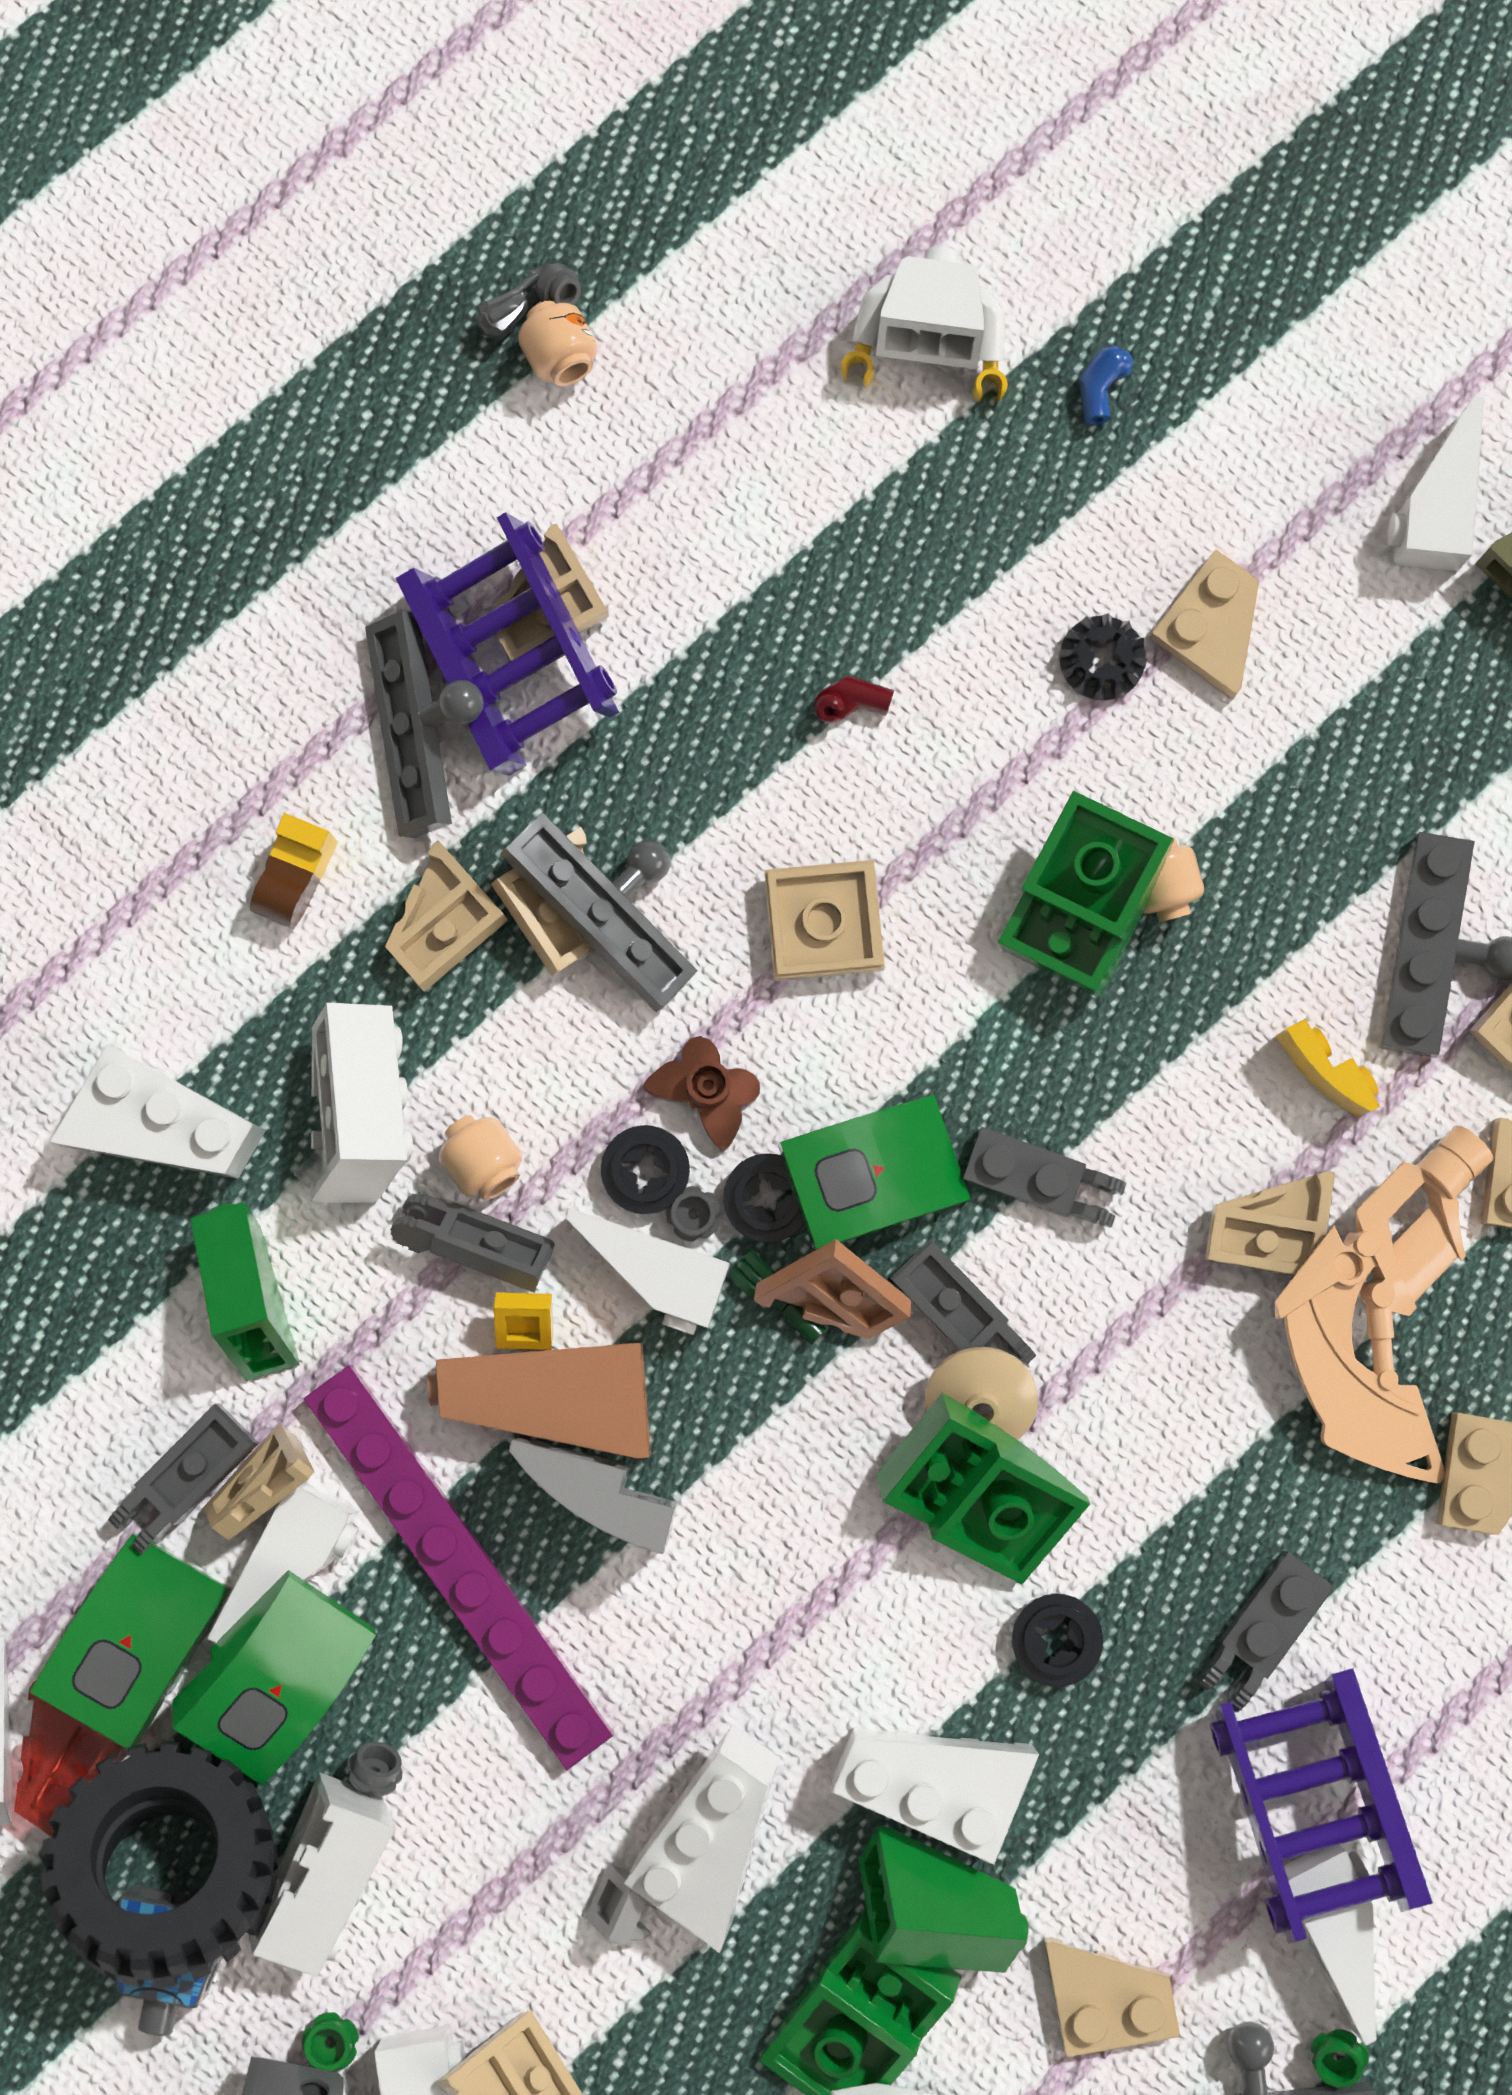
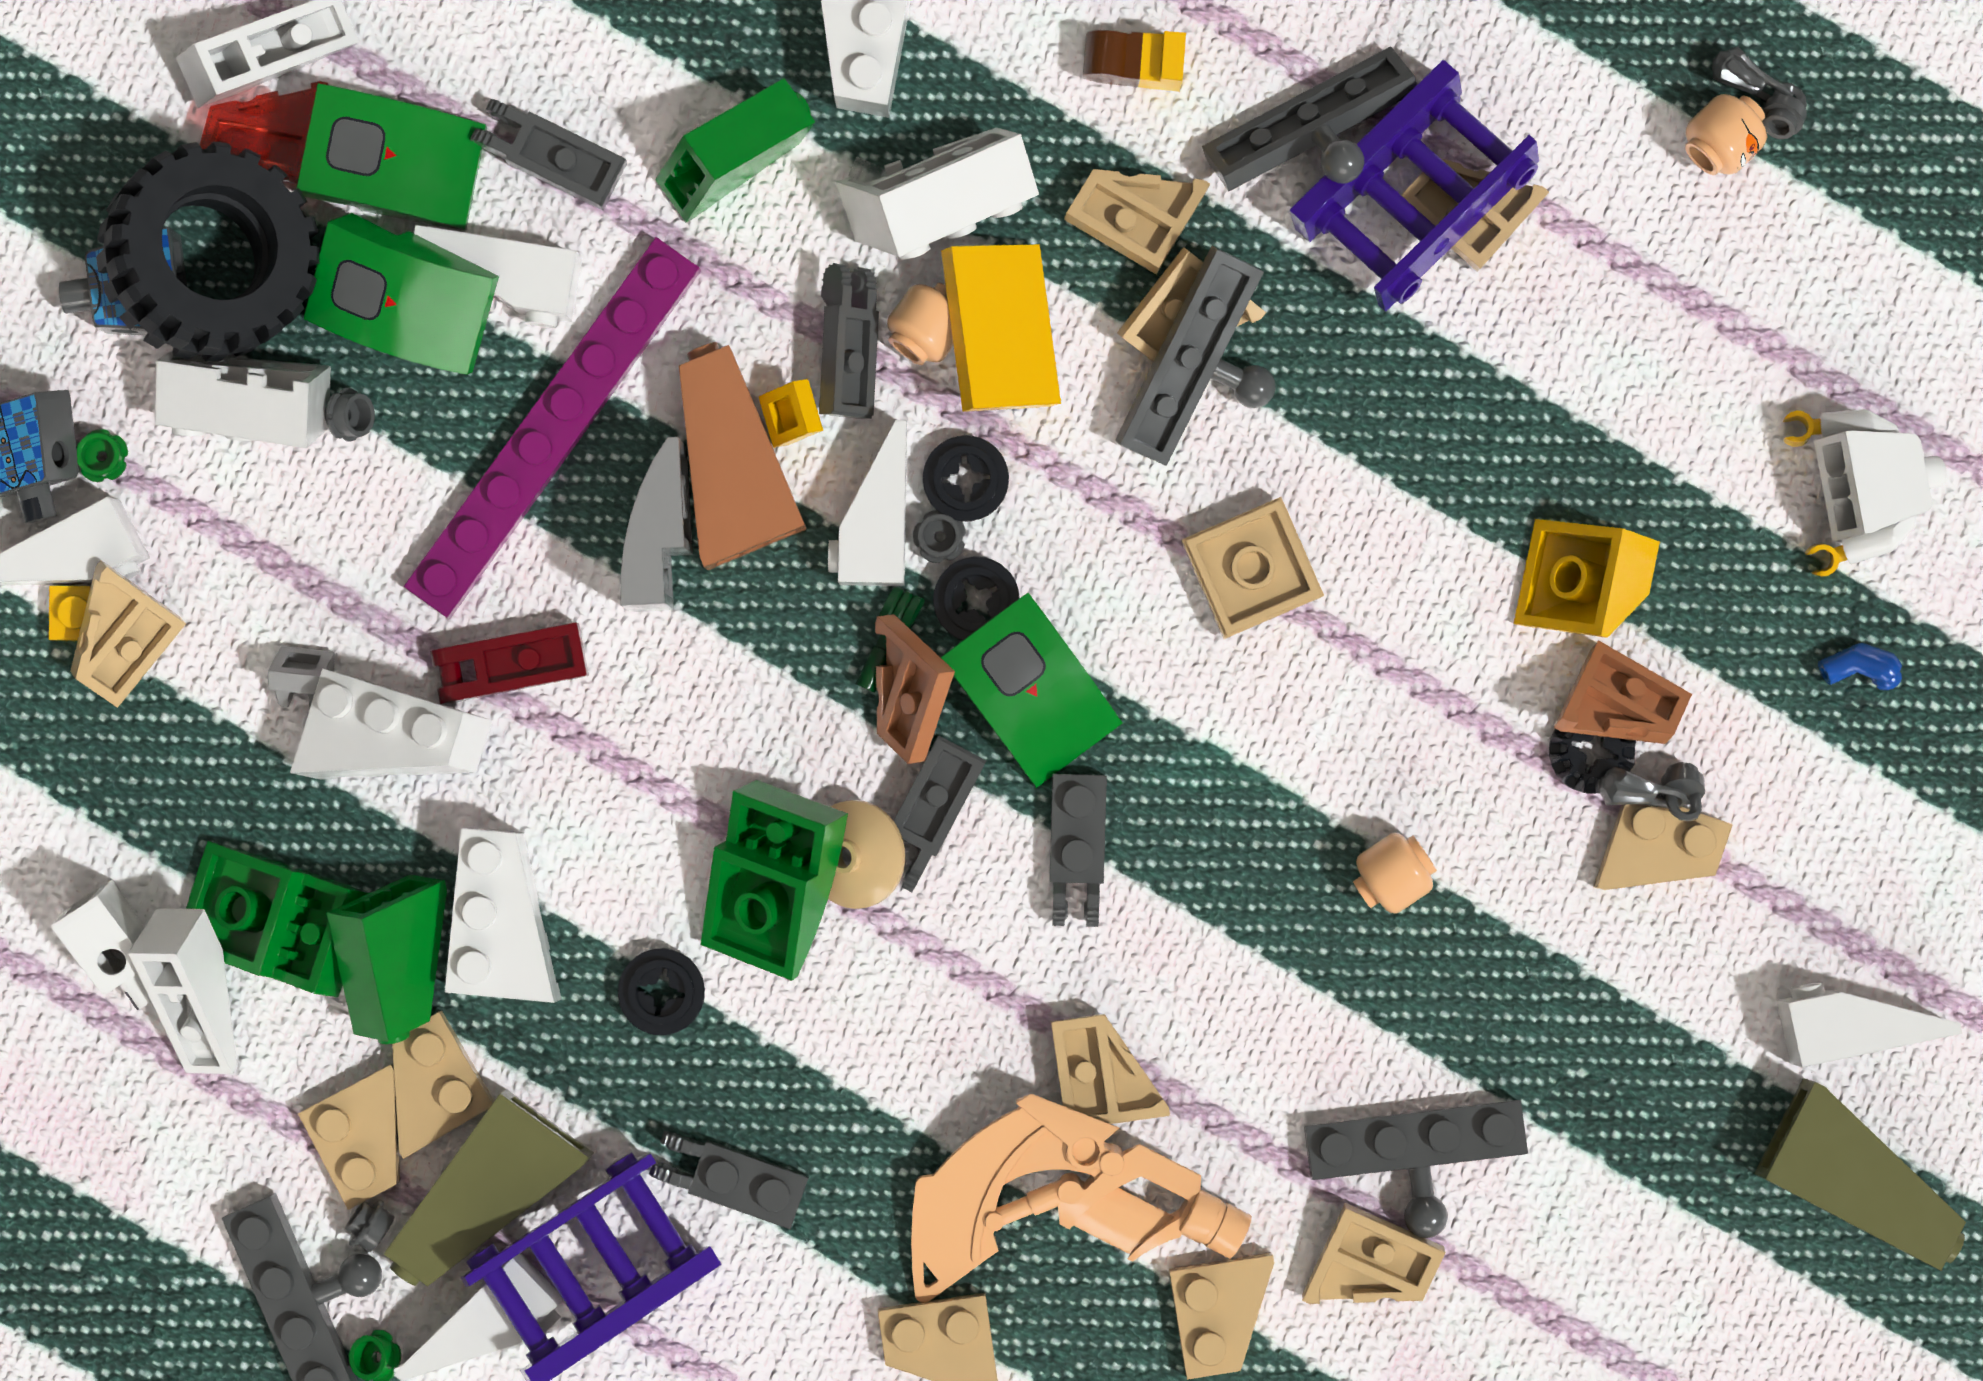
camera: 65 degrees right, 5 degrees up
(259, 1483) = (567, 223): tan wing -> none
(508, 1086) = (1000, 327): none -> yellow tile
(679, 1684) = (511, 662): none -> dark red plate
(706, 1087) = (1060, 511): copper animal -> none
(850, 695) = (1473, 521): dark red arm -> none
(936, 610) = (1584, 577): none -> yellow slope
(1065, 611) = (1622, 700): none -> nougat wing
(1081, 1903) = (434, 1085): none -> tan wing
(1086, 894) = (1354, 802): green slope -> none
(1163, 586) = (1679, 787): none -> dark grey piece
(1197, 1876) = (491, 1180): none -> olive slope
(1203, 2019) = (369, 1225): none -> dark grey plate
(1345, 1084) = (1257, 1099): yellow slope -> none

